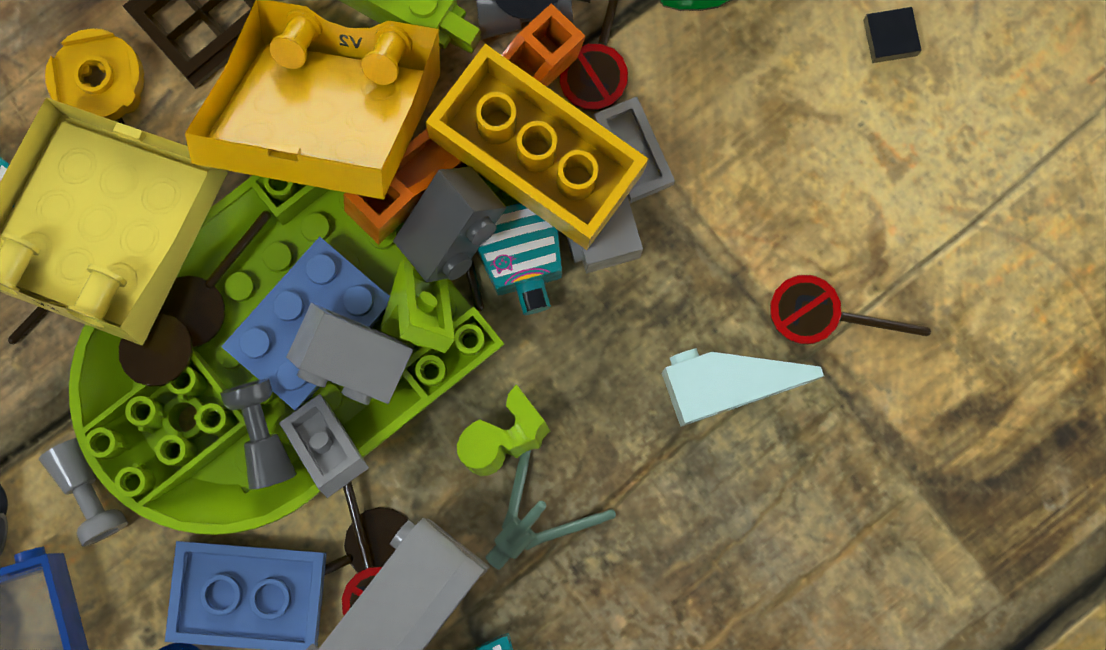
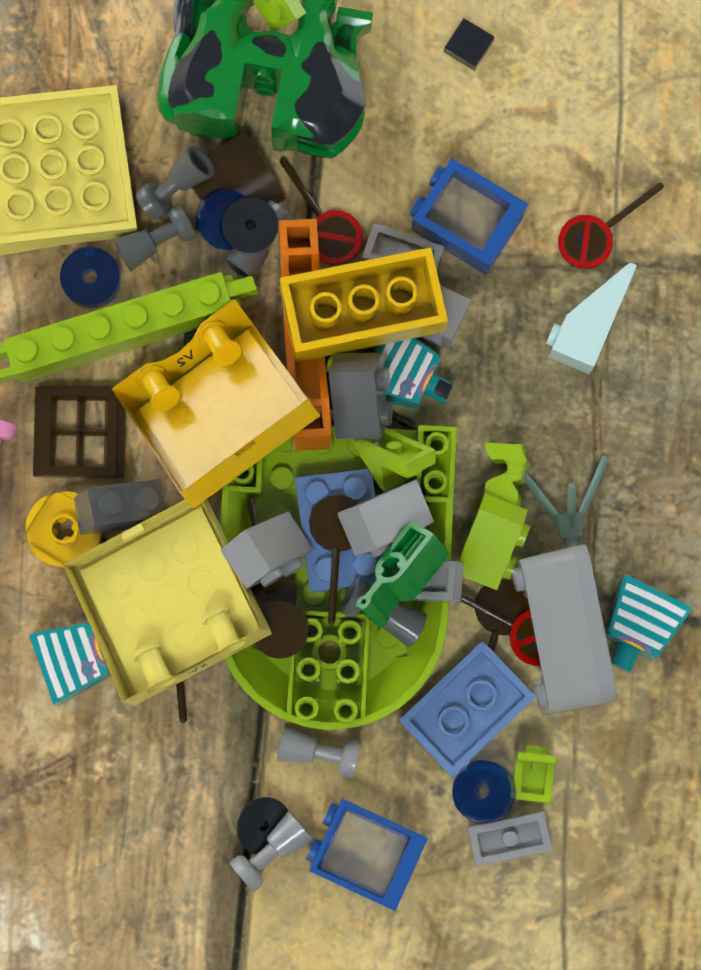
camera: 50 degrees left, 0 degrees up
(148, 99) = (118, 506): none -> dark grey brick
(216, 269) = (267, 551): none -> light grey brick
(287, 314) = (330, 535): none -> dark brown piece
(302, 415) = (402, 572): none -> green piece
(424, 475) = (492, 541): none -> lime brick
(725, 176) = (467, 215): none -> blue window

